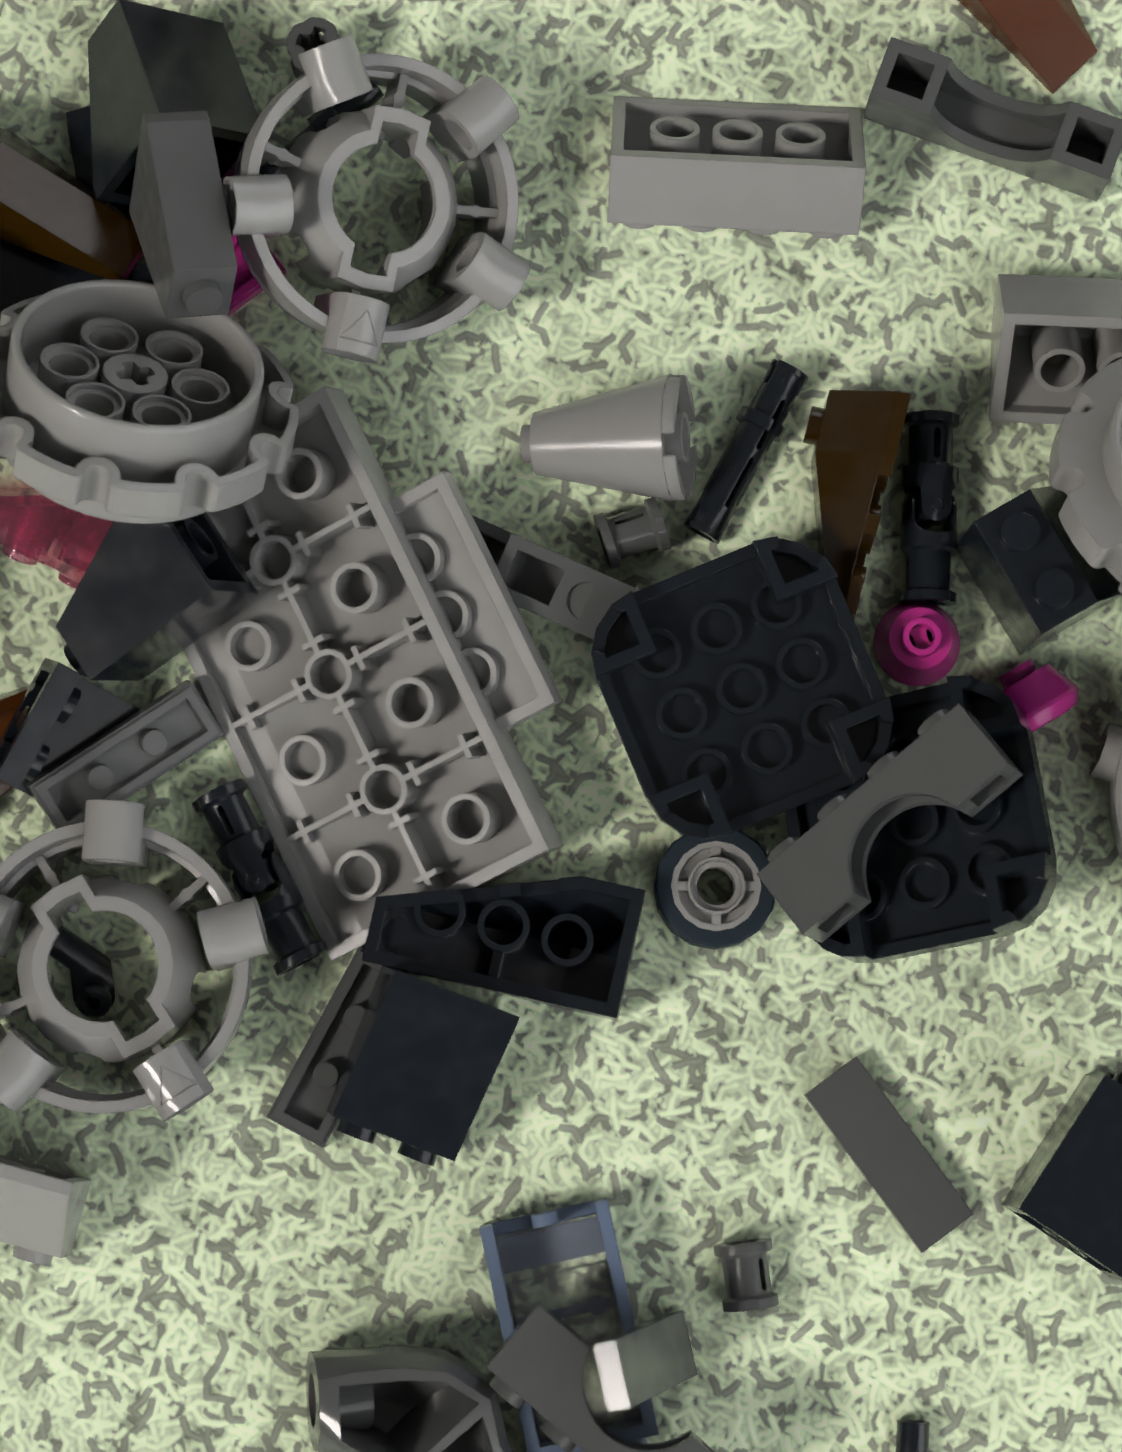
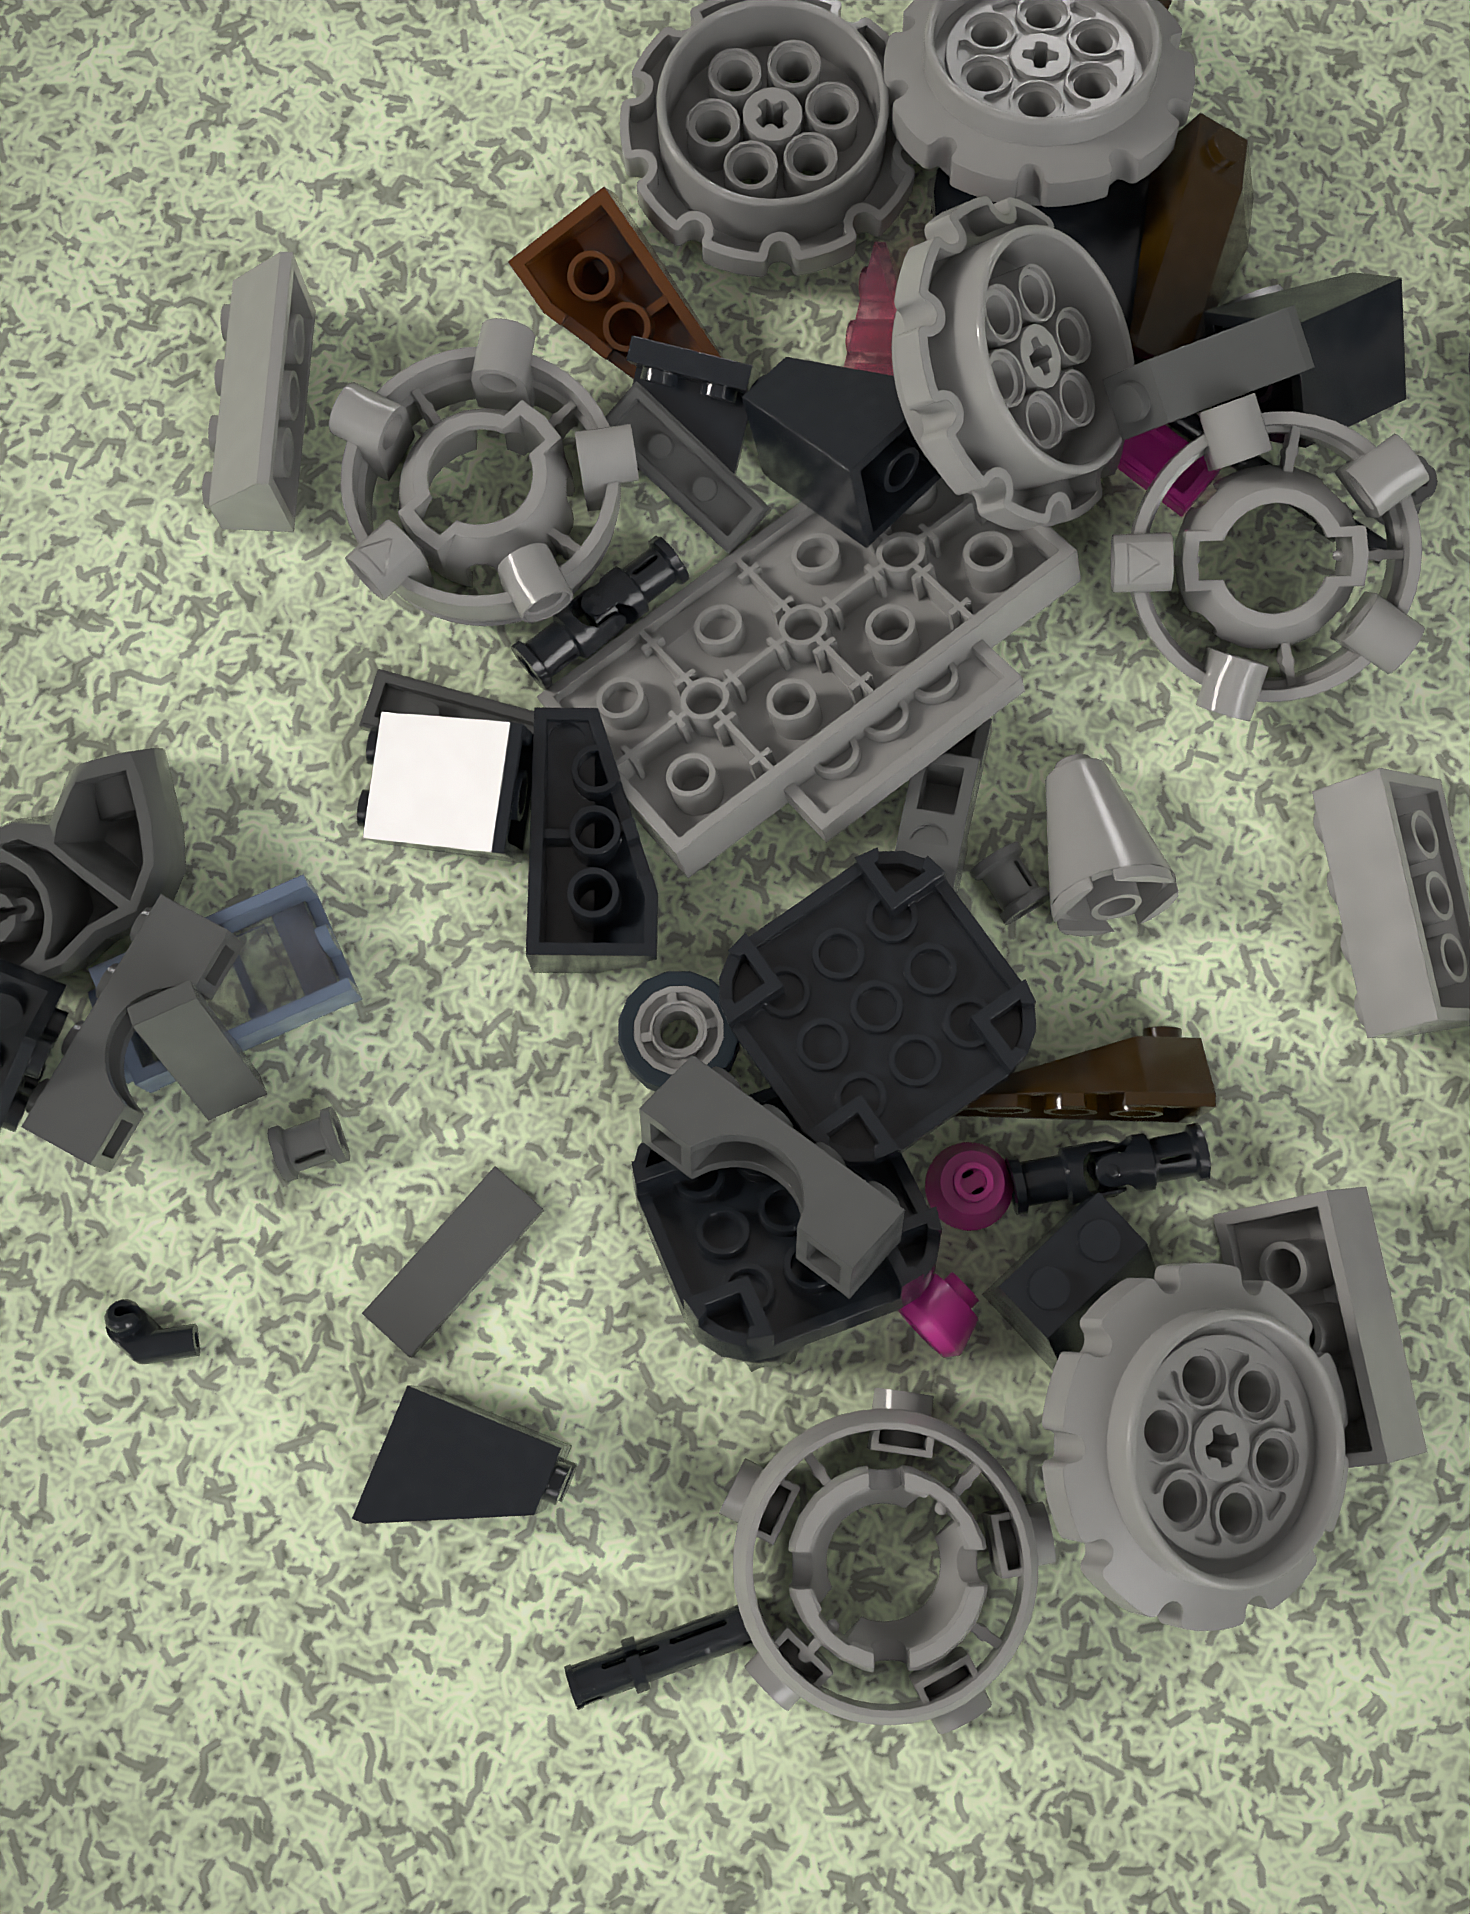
camera: 80 degrees right, 5 degrees down
(89, 973) = (480, 486): black arm -> none
(753, 437) = (1121, 977): black pin -> none

